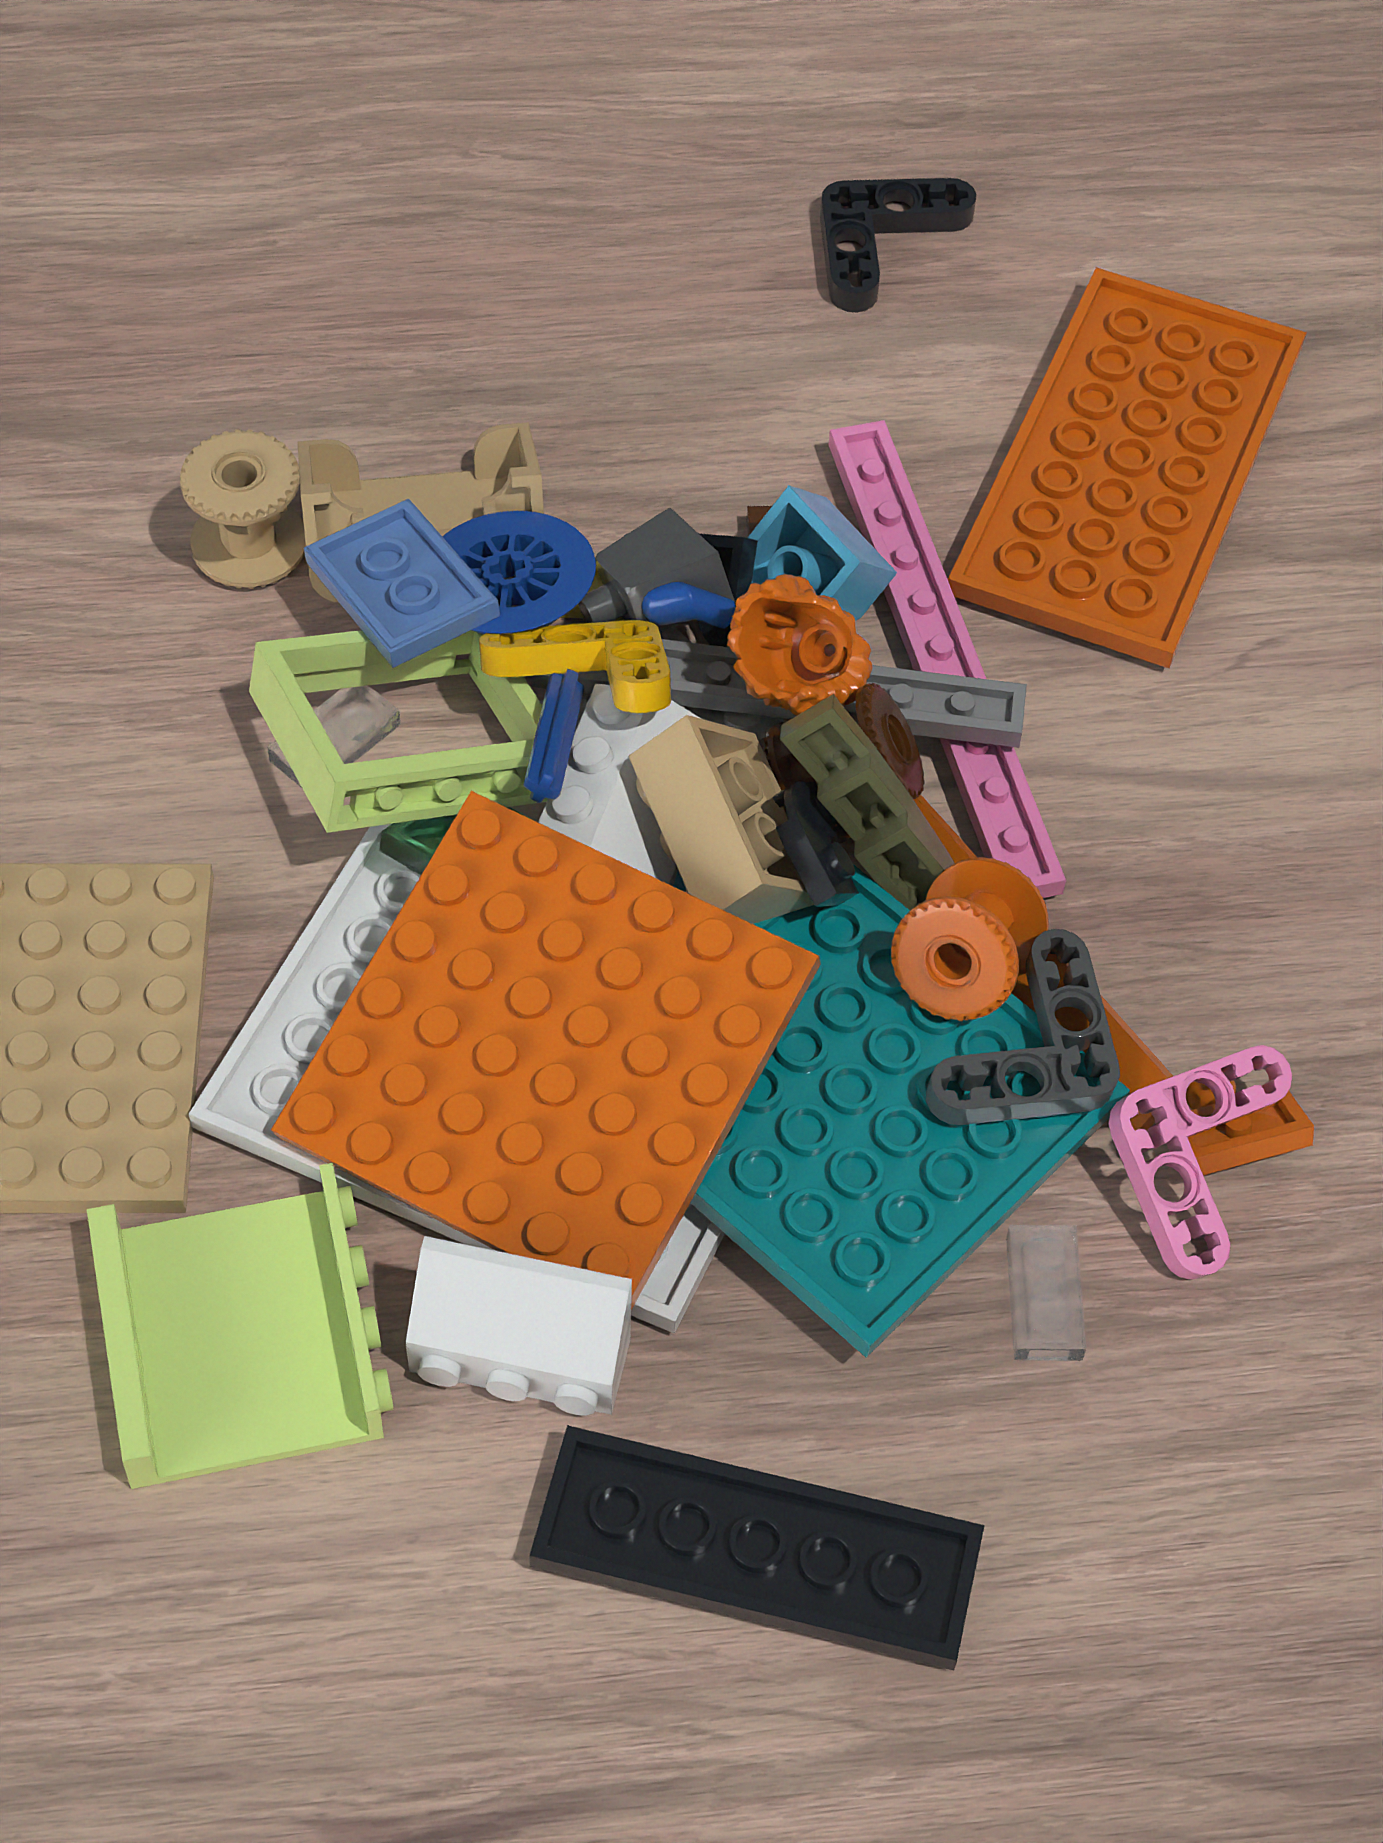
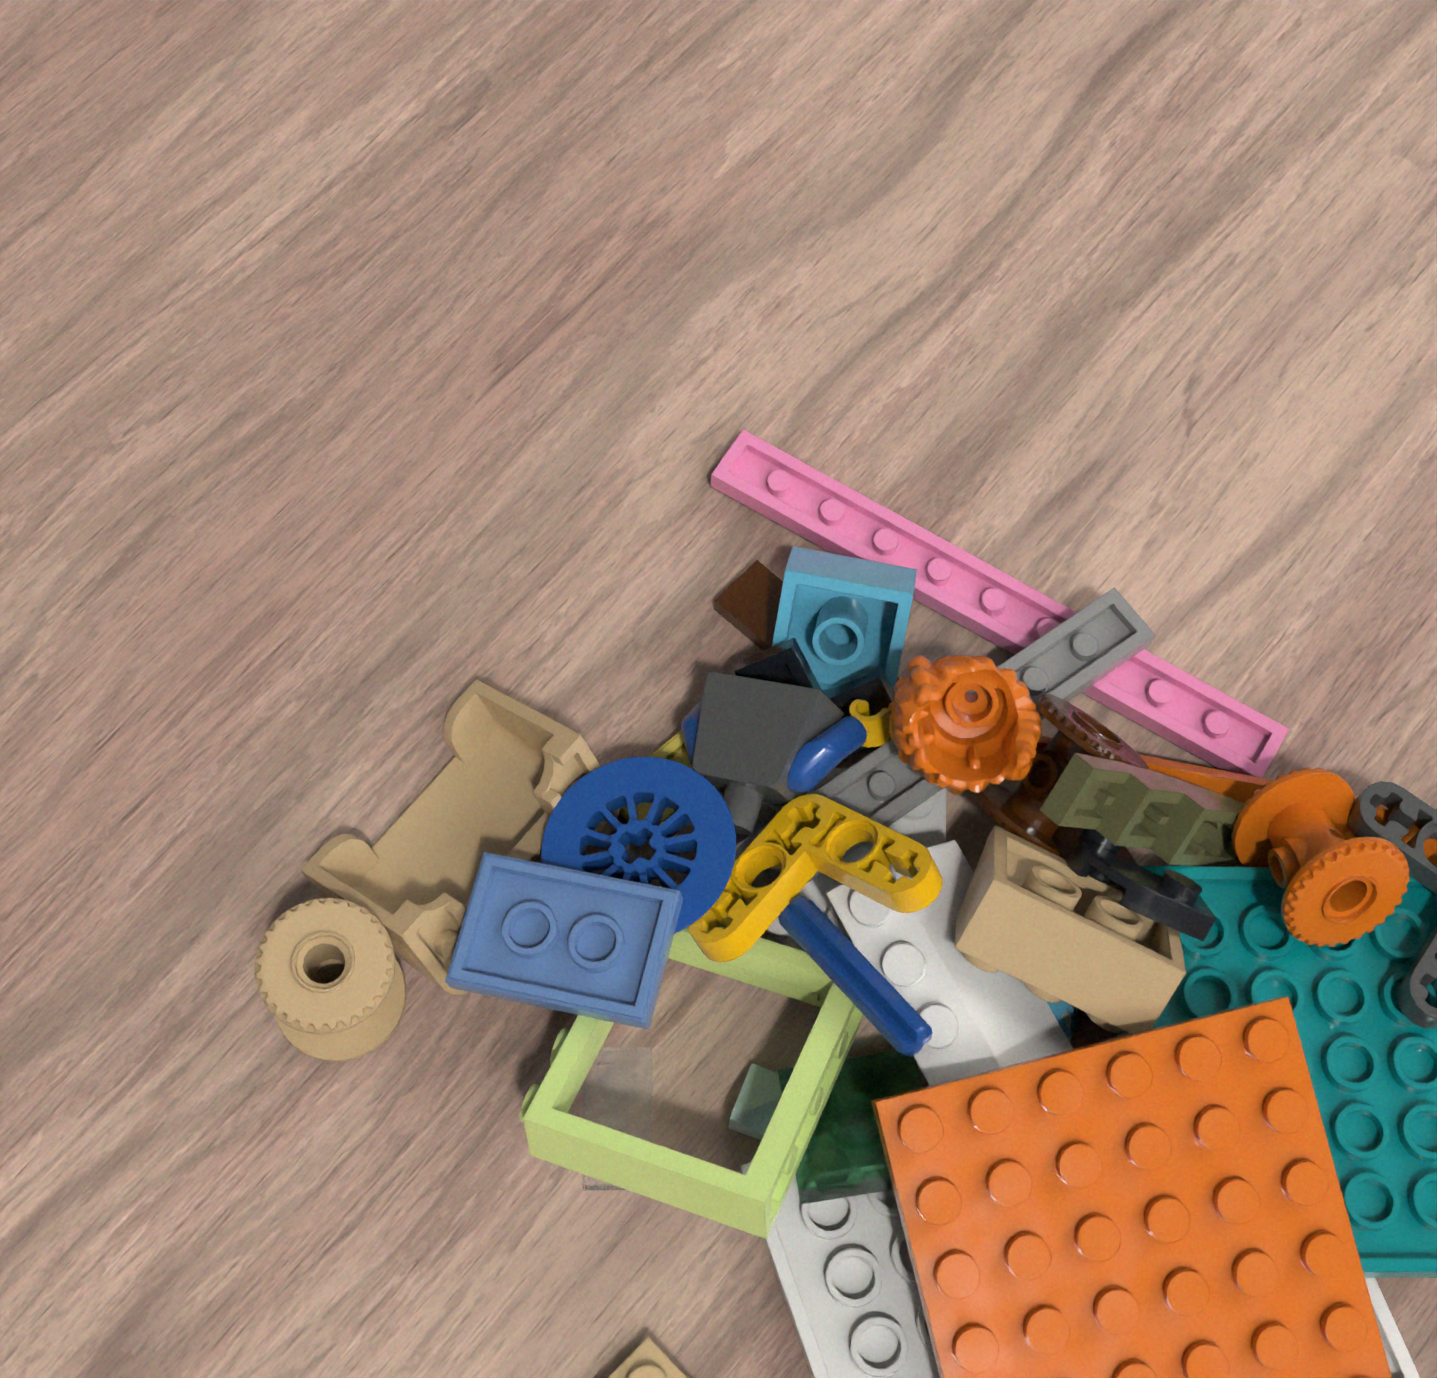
camera: 45 degrees left, 10 degrees up
(862, 224) = (524, 252): black beam -> none
(1128, 467) = (954, 315): orange plate -> none

